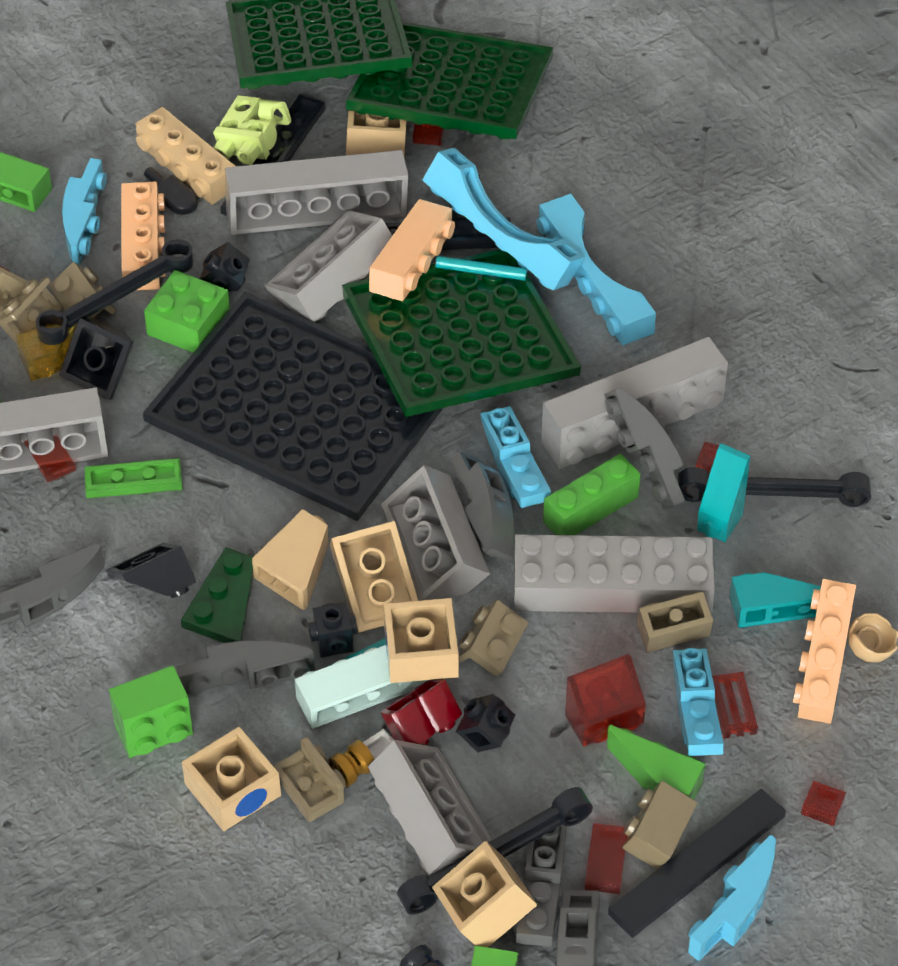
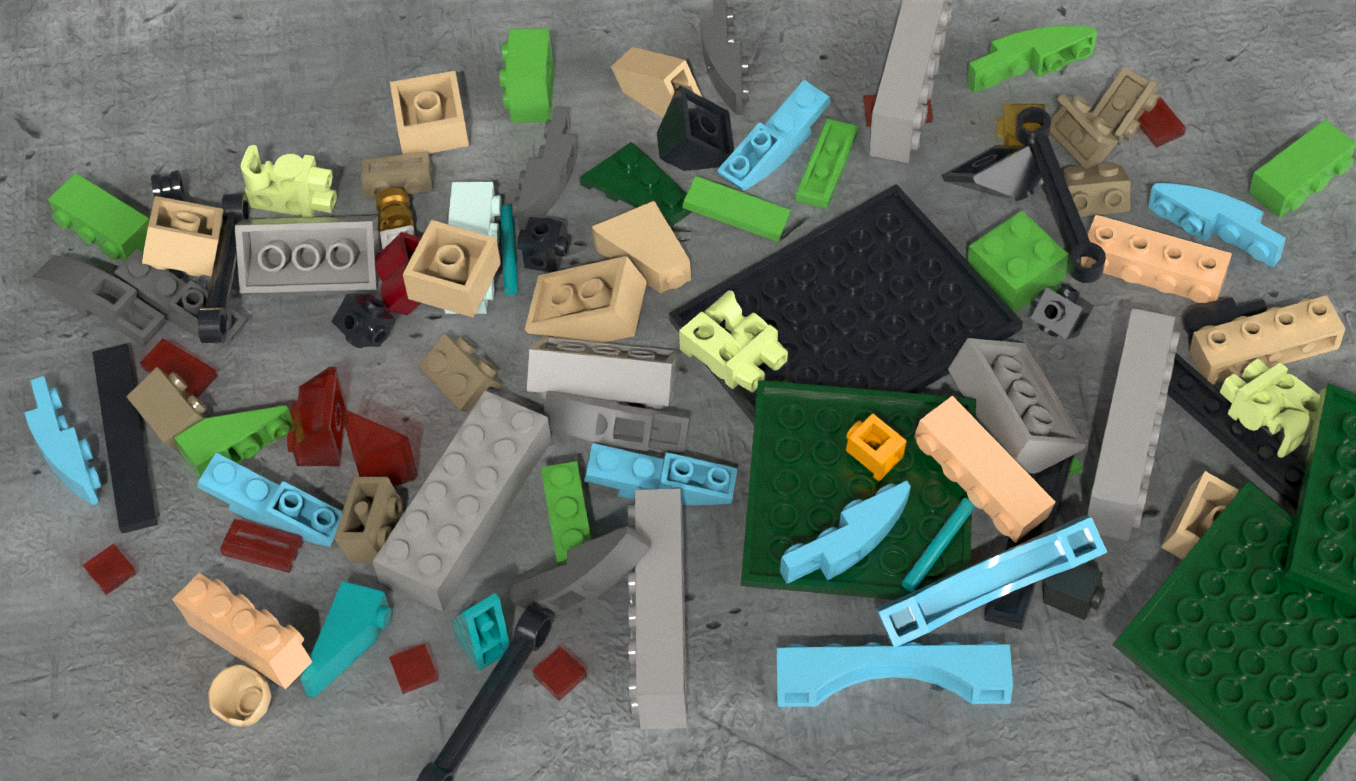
camera: 120 degrees right, 5 degrees up
(108, 618) = (652, 78): none -> tan slope
(135, 518) = (777, 140): none -> medium azure slope
(220, 514) = (736, 208): none -> bright green tile
(375, 860) = (288, 186): none -> yellowish green hips
(379, 436) = (737, 354): none -> yellowish green hips
(426, 320) = (879, 435): none -> light orange brick
(507, 302) = (859, 532): none -> medium azure slope
(620, 632) = (379, 450): none -> clear red slope
(770, 551) = (413, 668): none -> clear red tile

